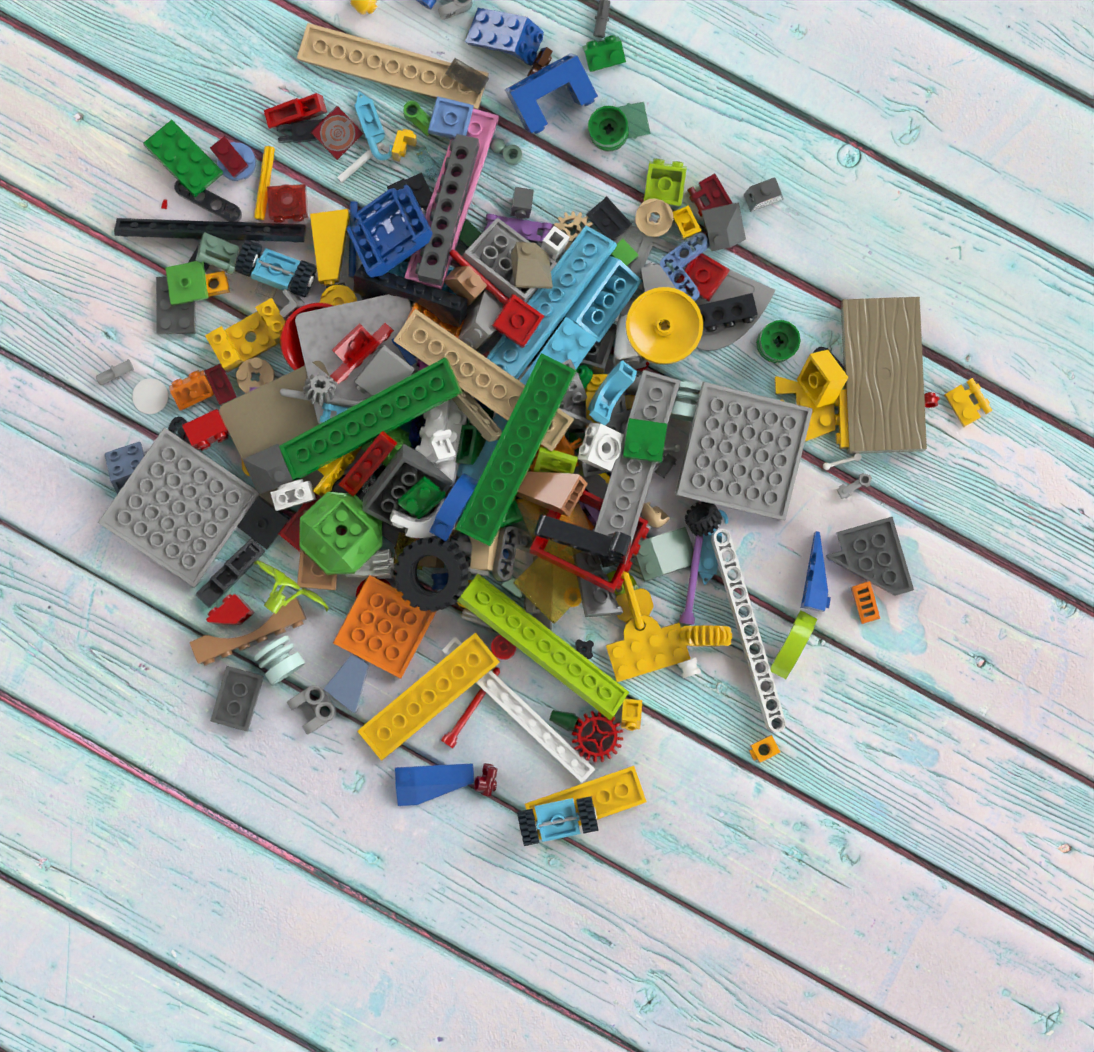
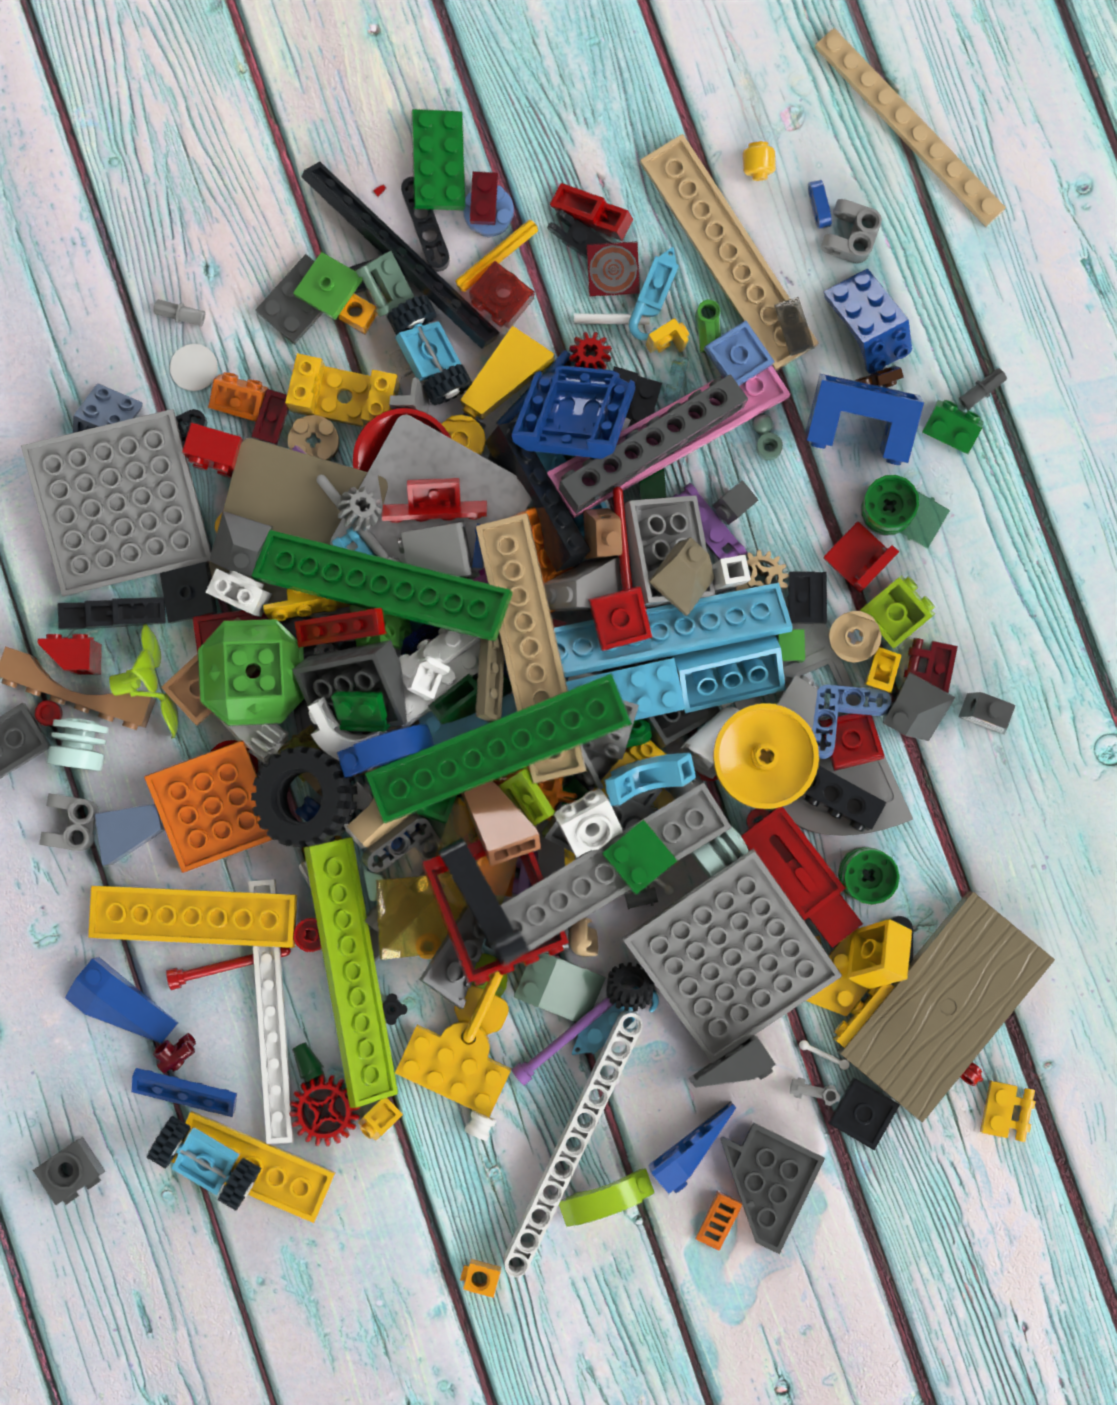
camera: 35 degrees right, 0 degrees up
(245, 659) = (48, 711): none -> red tile
(372, 194) = (590, 344): none -> red gear
(493, 906) = (63, 1186): none -> dark grey brick
(511, 796) = (184, 1092): none -> blue plate
(617, 171) = (859, 556): none -> red bracket
(705, 635) = (524, 1110): yellow gear -> none
(740, 372) = (801, 873): none -> red piece
(802, 501) = (740, 1064): none -> dark grey slope
(891, 473) = (863, 1113): none -> black plate

